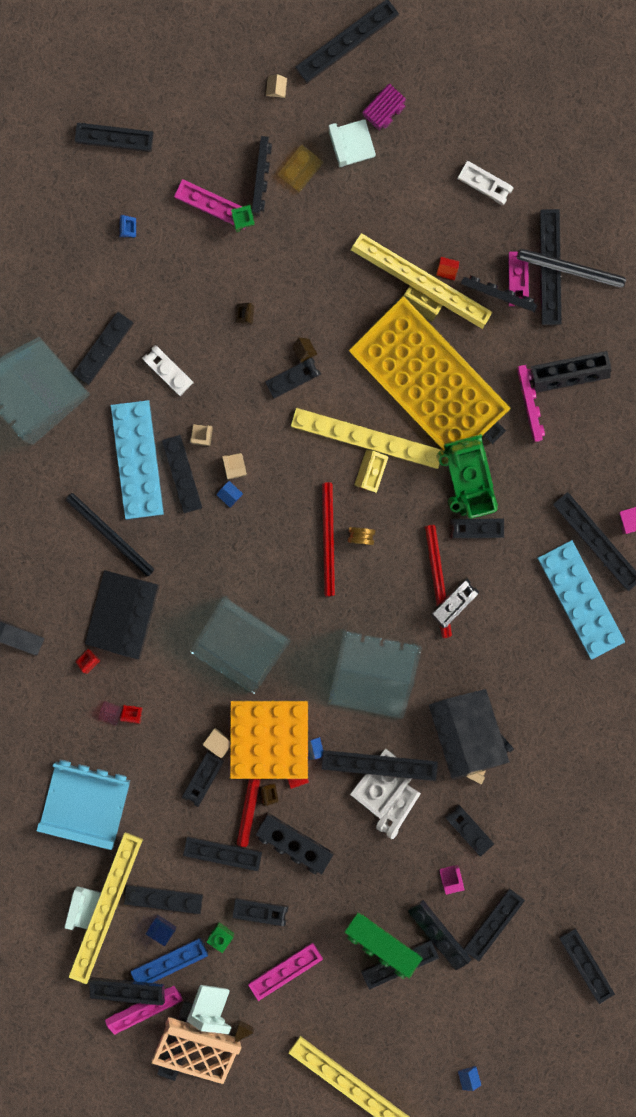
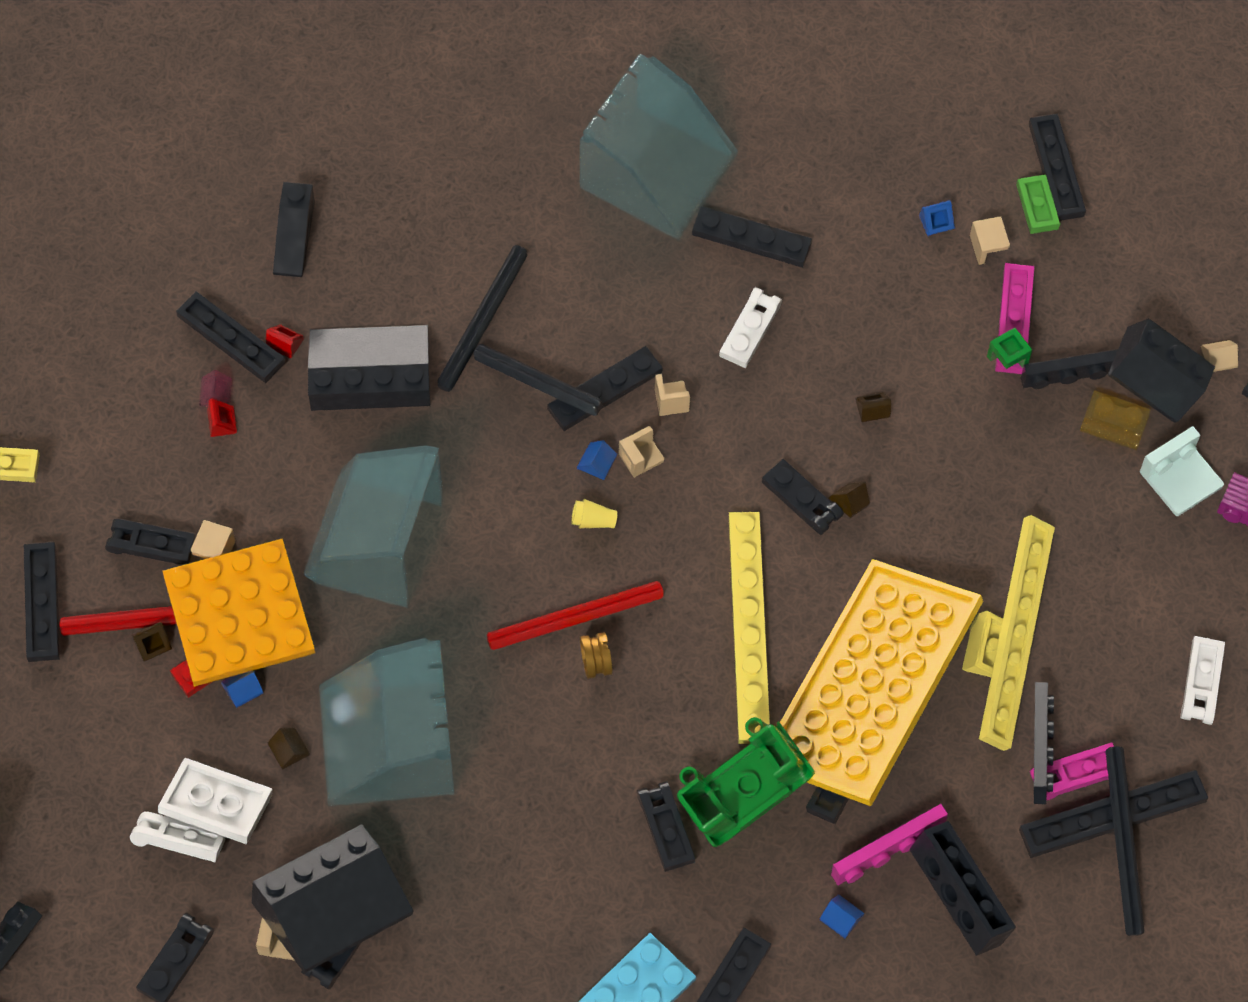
camera: 70 degrees right, 25 degrees down
(76, 694) = (230, 337): none -> black plate
(84, 805) = (66, 394): medium azure panel -> none
(137, 159) = (1038, 204): none -> bright green plate
(137, 459) = (606, 323): medium azure plate -> none
(154, 200) = (988, 237): none -> tan panel
(167, 514) = (538, 379): none -> black axle
(267, 509) = (592, 515): none -> light yellow cone
(272, 824) = (77, 744): black brick -> none
(282, 129) = (1160, 369): none -> black slope
(360, 731) = (287, 747): none -> dark brown slope
(371, 470) = (701, 648): light yellow slope -> none
(380, 765) = (243, 783): black plate -> none
(437, 573) = (562, 793): red axle -> none
(447, 268) = (1051, 665): red slope -> none
(451, 879) = (87, 955): dark pink panel -> none
(454, 603) = (535, 821): plate -> none
(561, 445) = (841, 916): none -> blue slope

